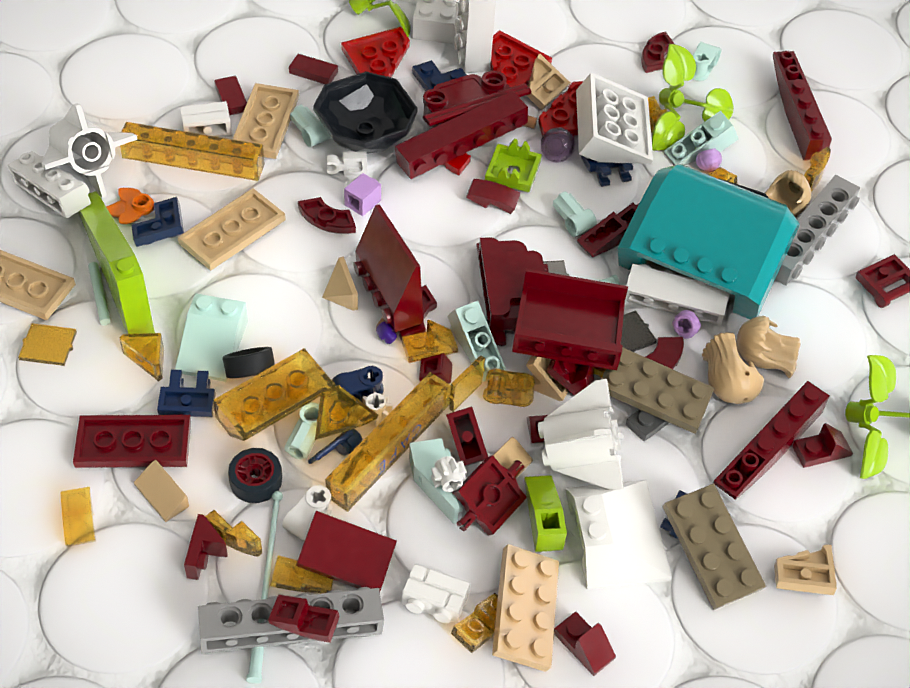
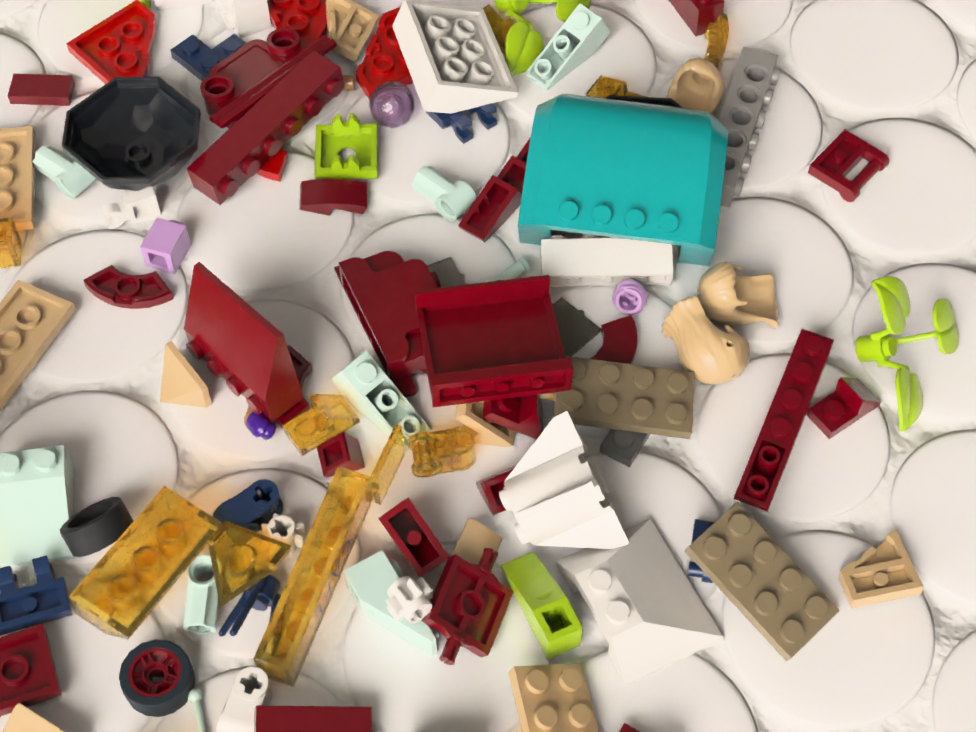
camera: 15 degrees left, 5 degrees up
(709, 159) = (584, 70): lavender piece -> none

